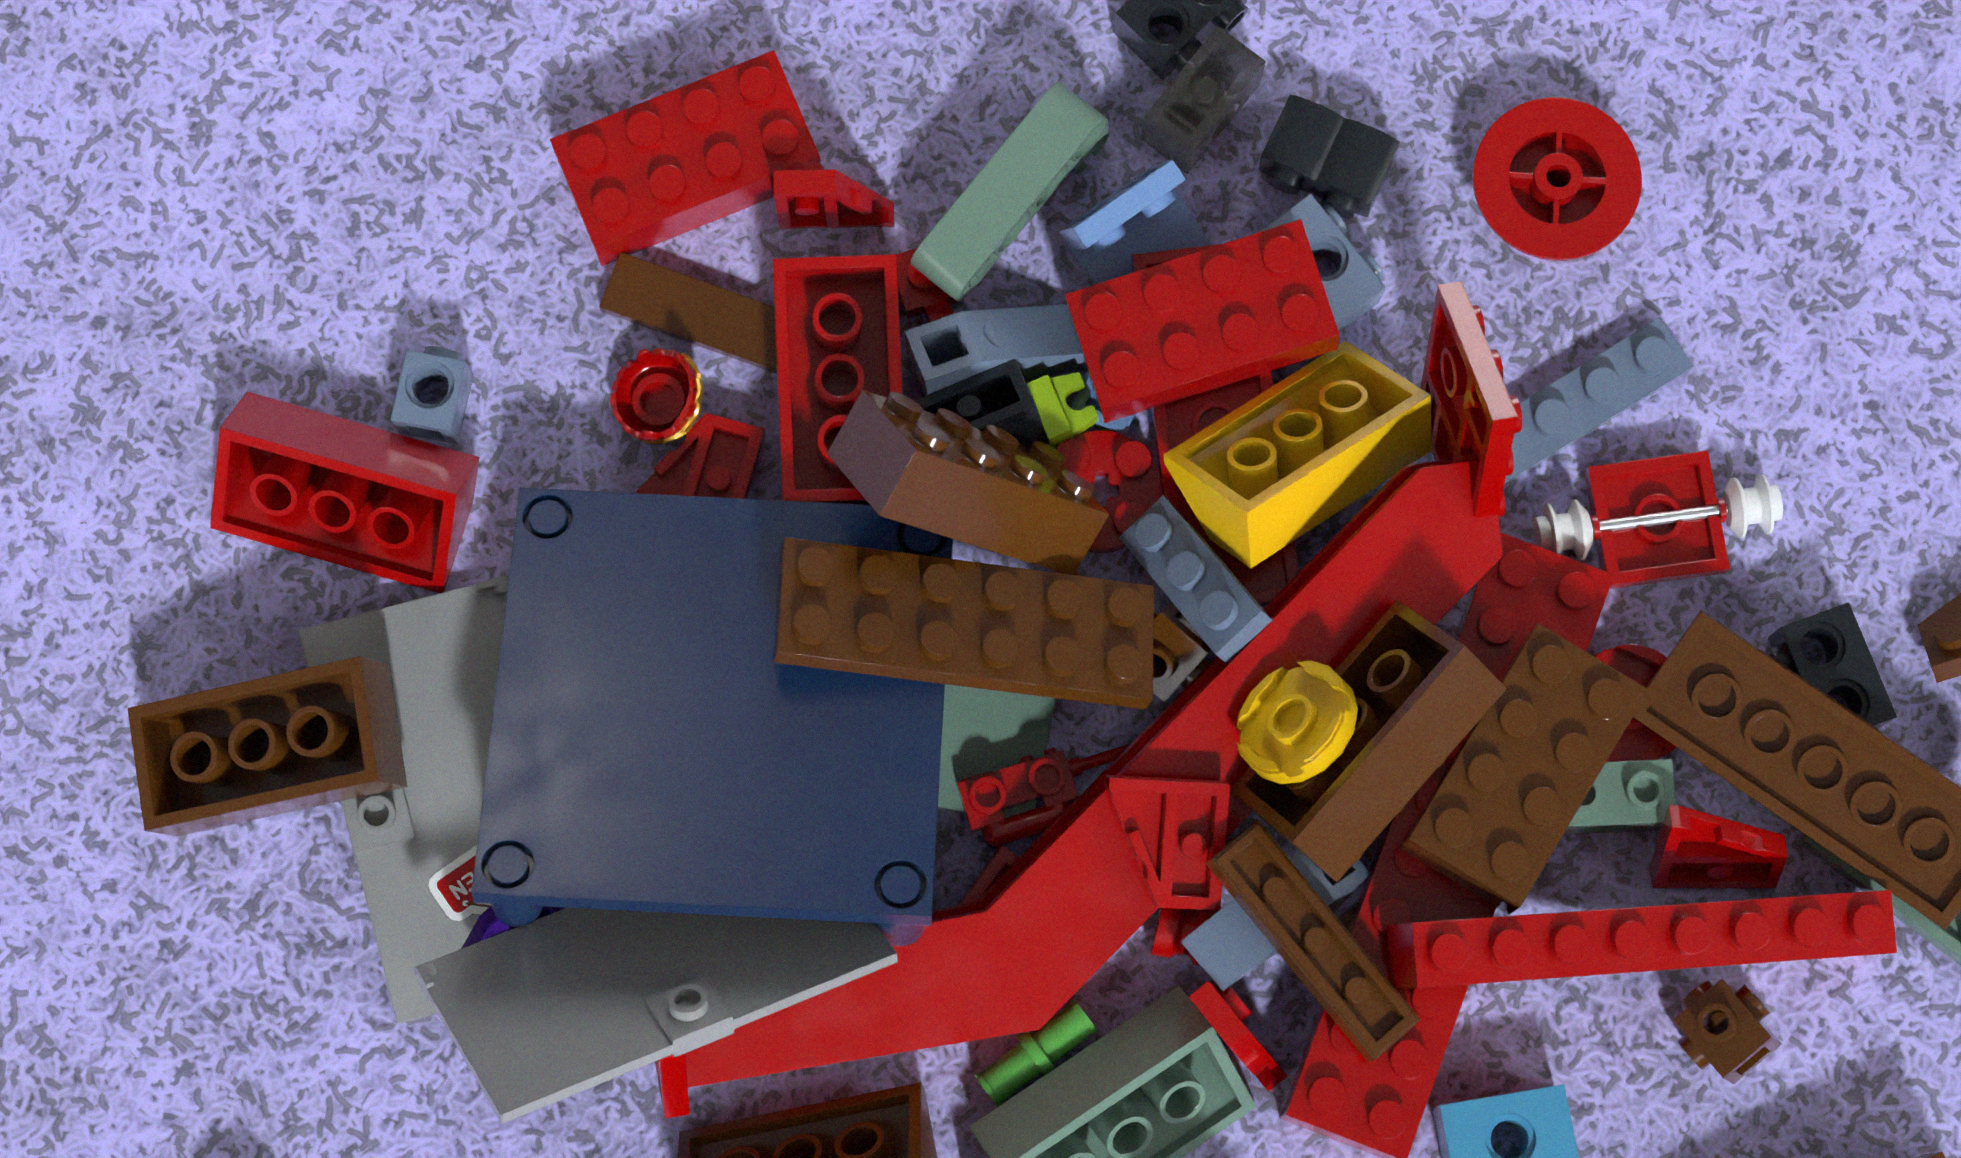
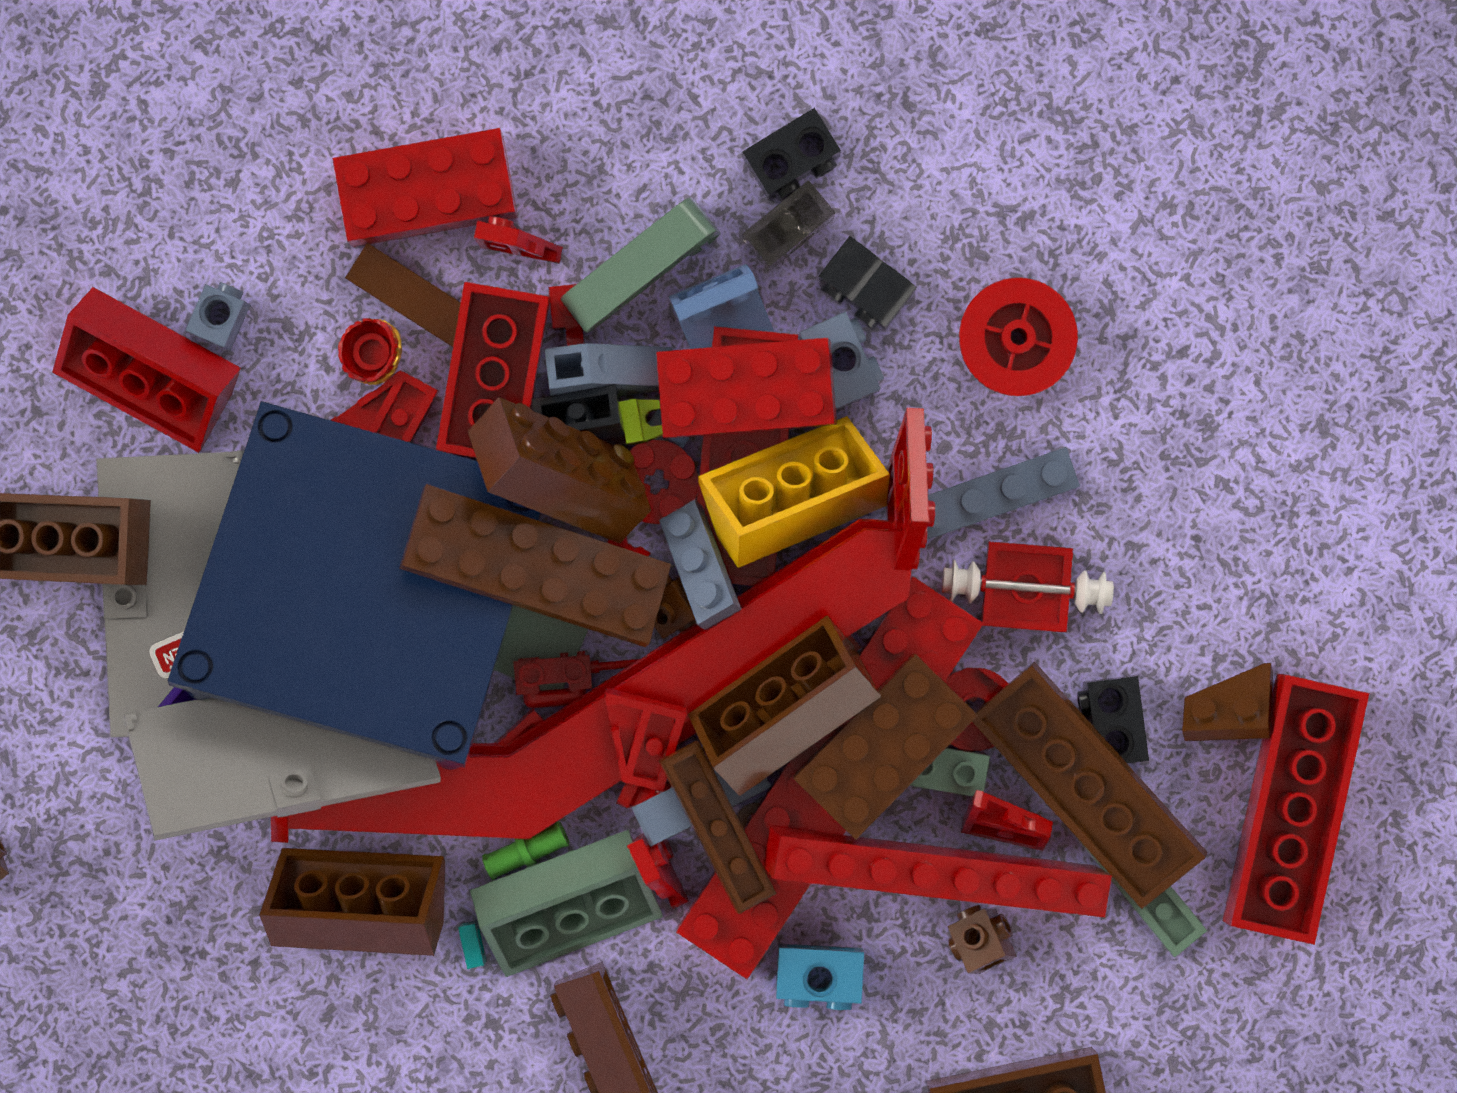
camera: 15 degrees right, 10 degrees up
(1296, 722) = (738, 684): yellow tile -> none

